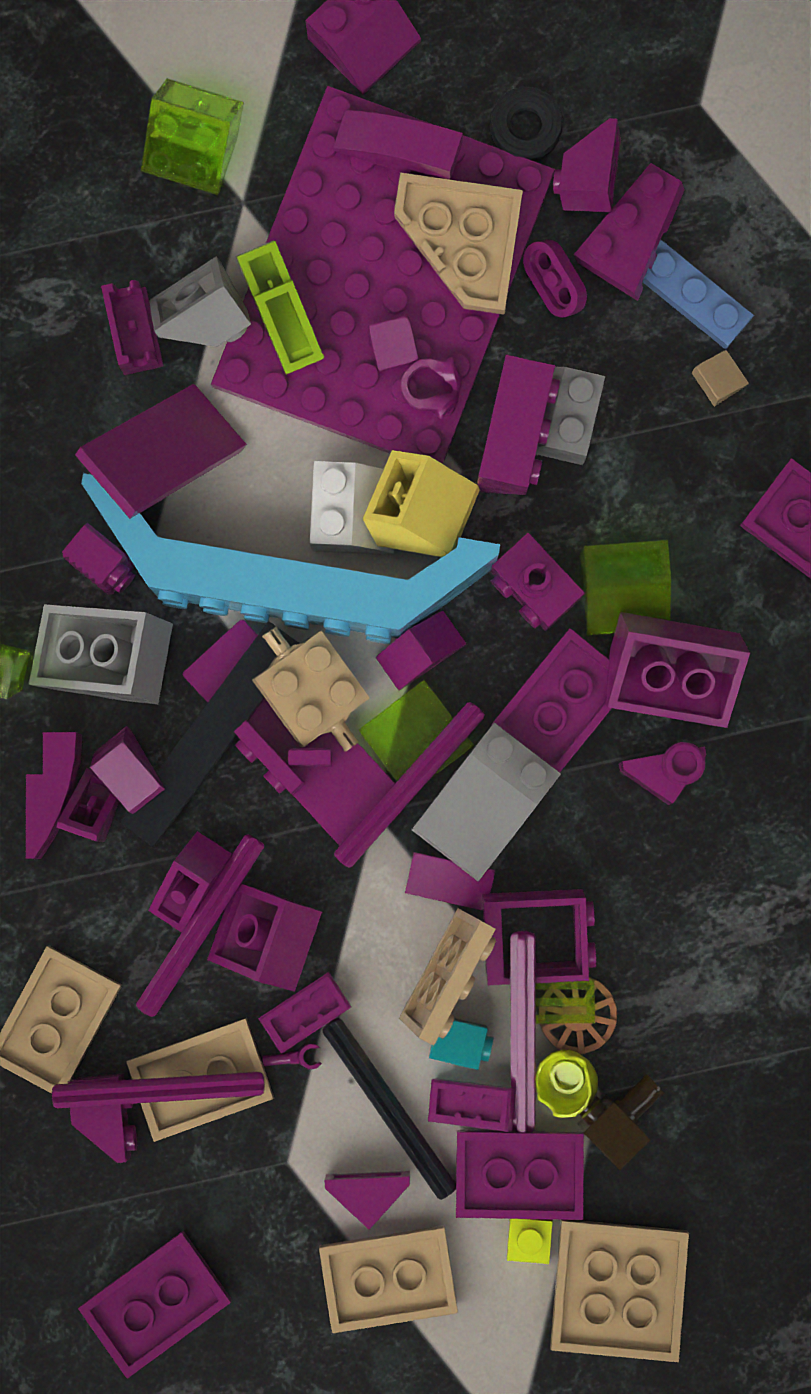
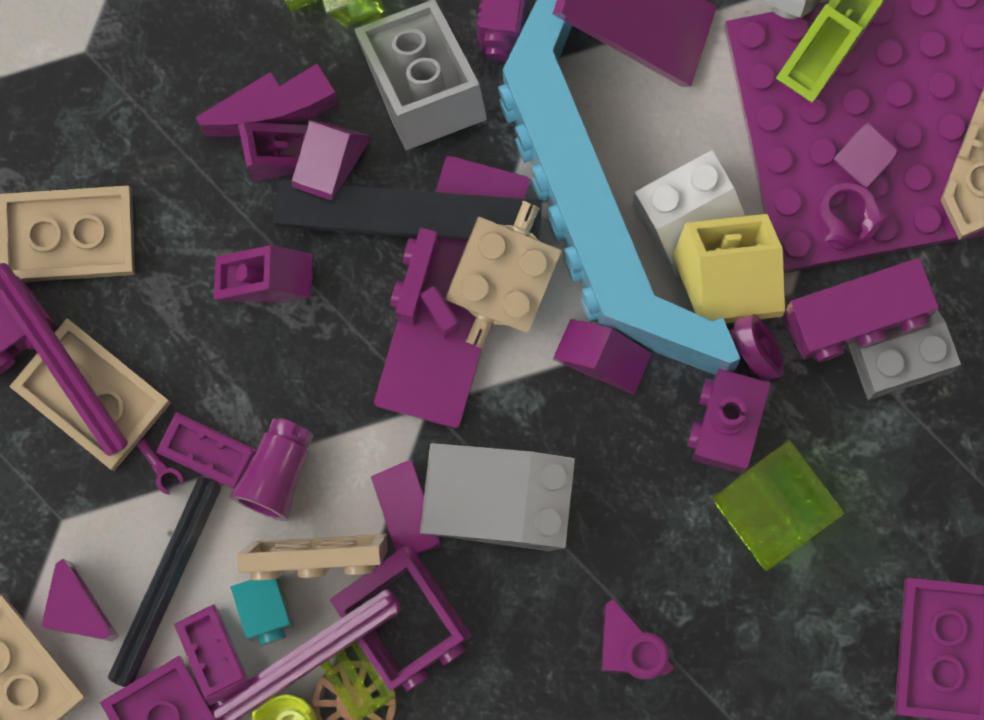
camera: 60 degrees right, 5 degrees down
(200, 925) = (229, 309): magenta axle -> none
(264, 937) = (253, 373): magenta slope -> none
(354, 966) = (274, 470): none -> magenta plant
(408, 728) = (518, 400): clear neon green tile -> none
(409, 784) = (471, 418): magenta axle -> none
(493, 524) = (758, 347): none -> magenta plate
(560, 702) = (635, 513): magenta plate -> none
(675, 669) = (729, 597): magenta slope -> none

